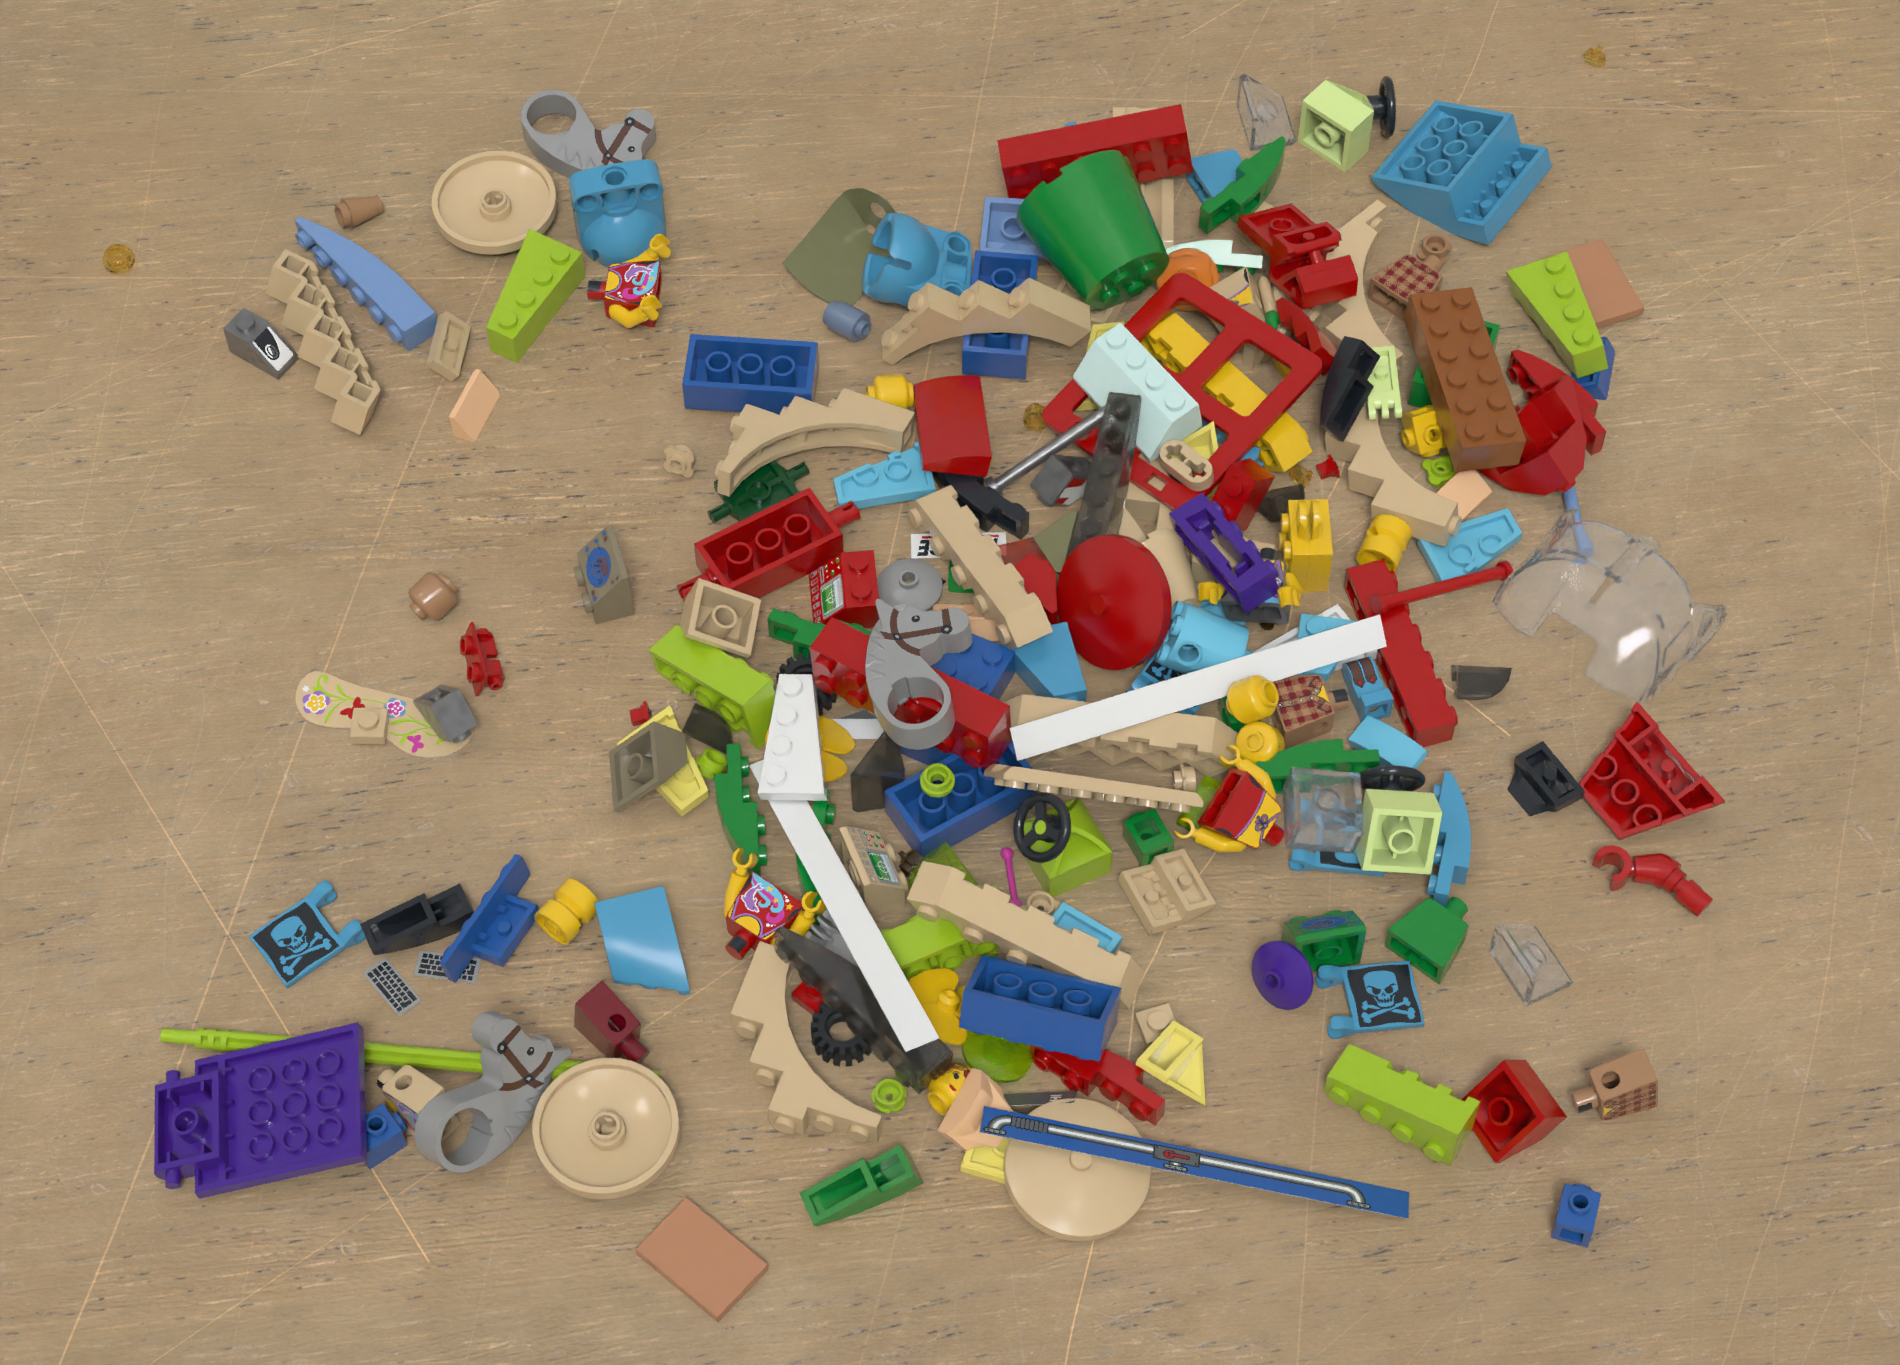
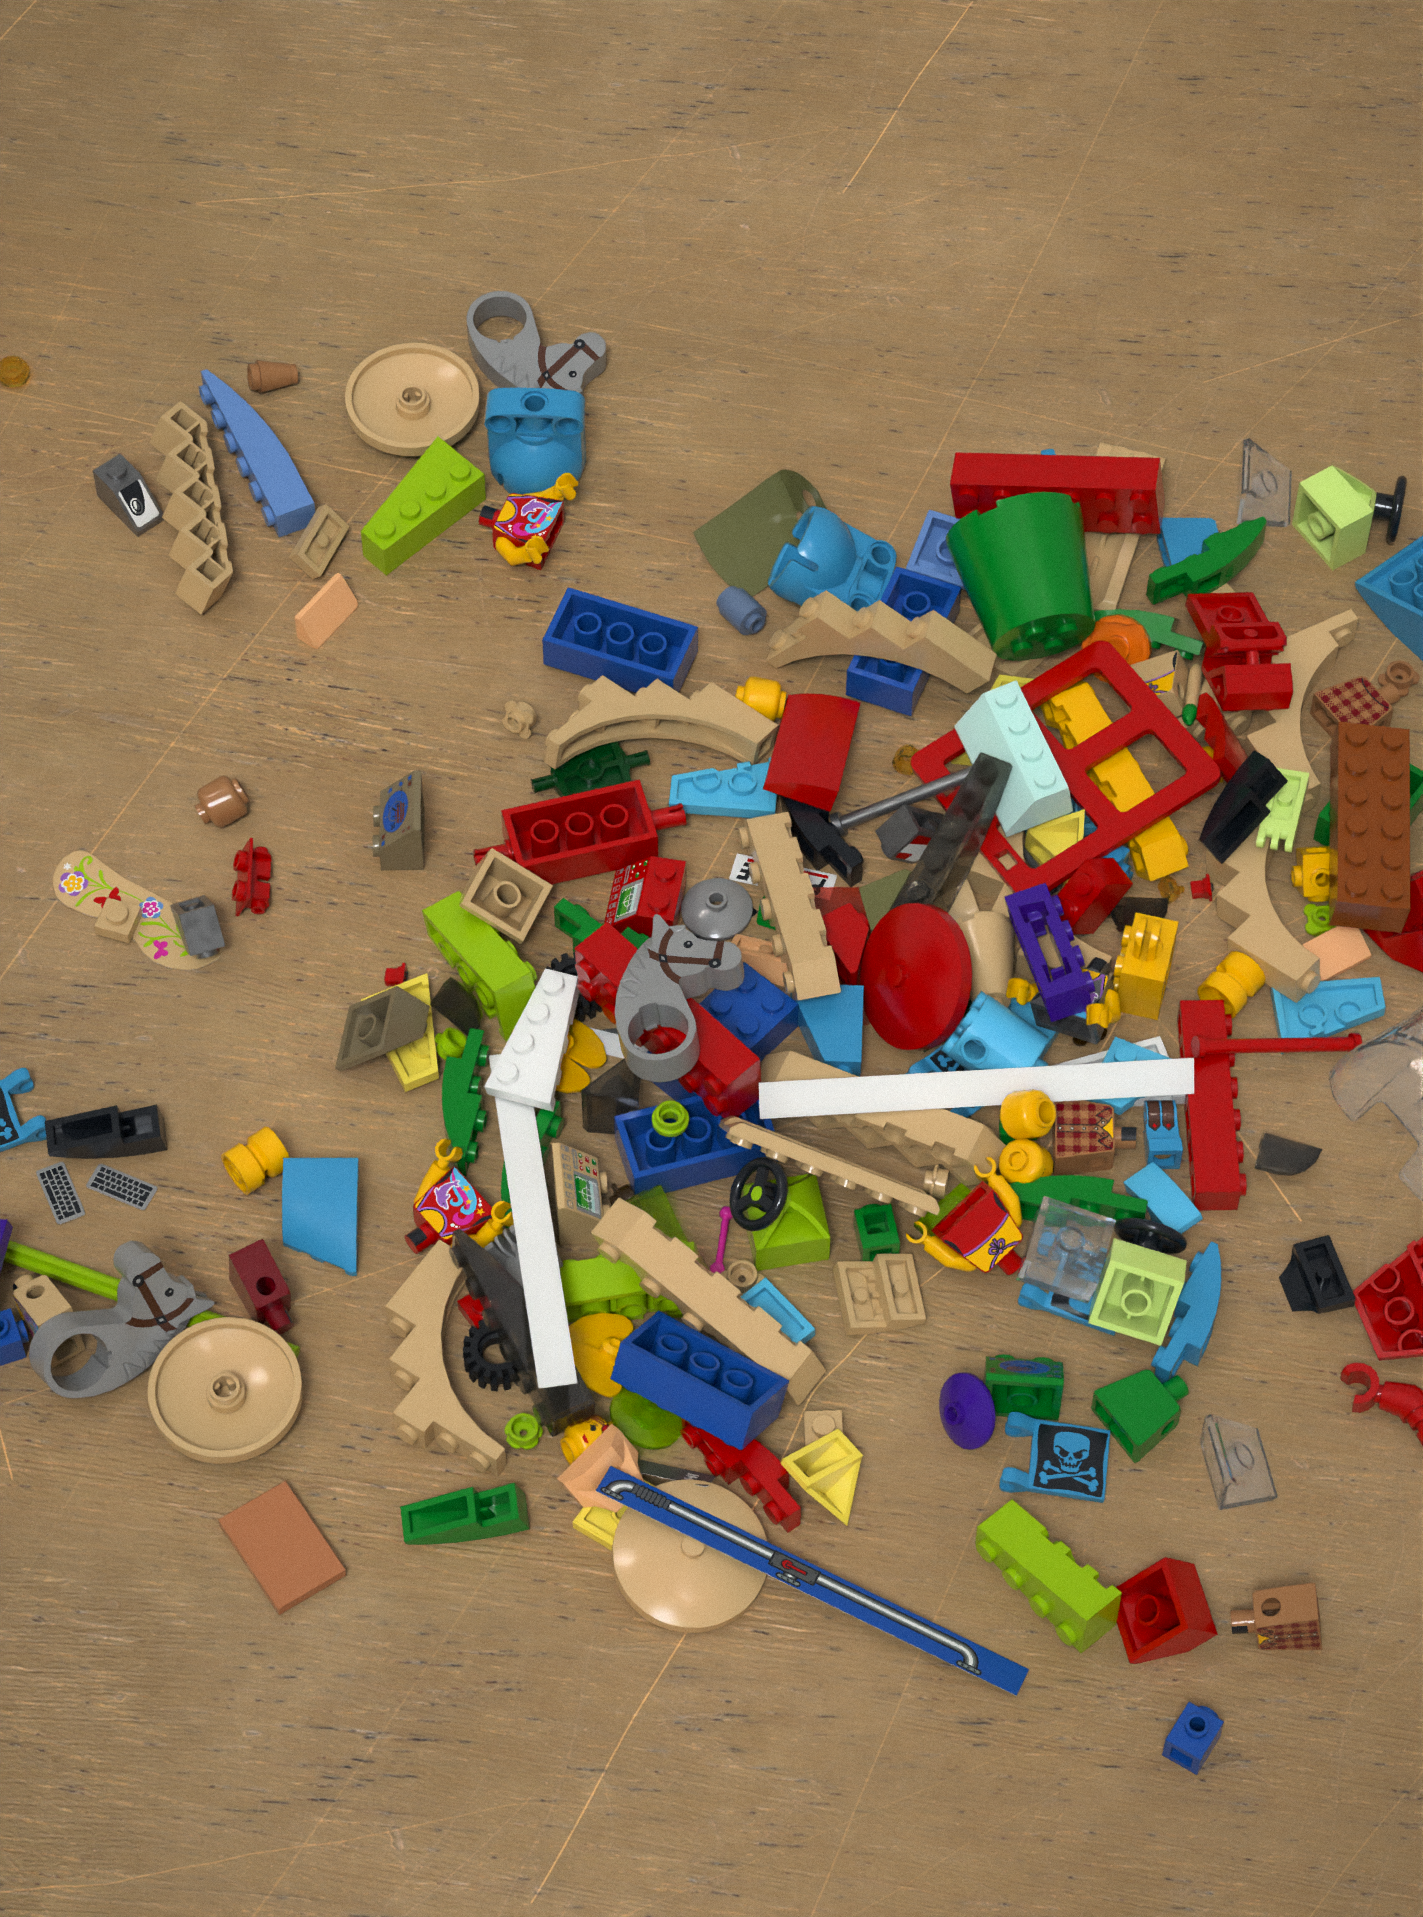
camera: 15 degrees right, 0 degrees up
(495, 925) = (180, 1155): blue bracket -> none
(1182, 469) = (1035, 853): tan beam -> none

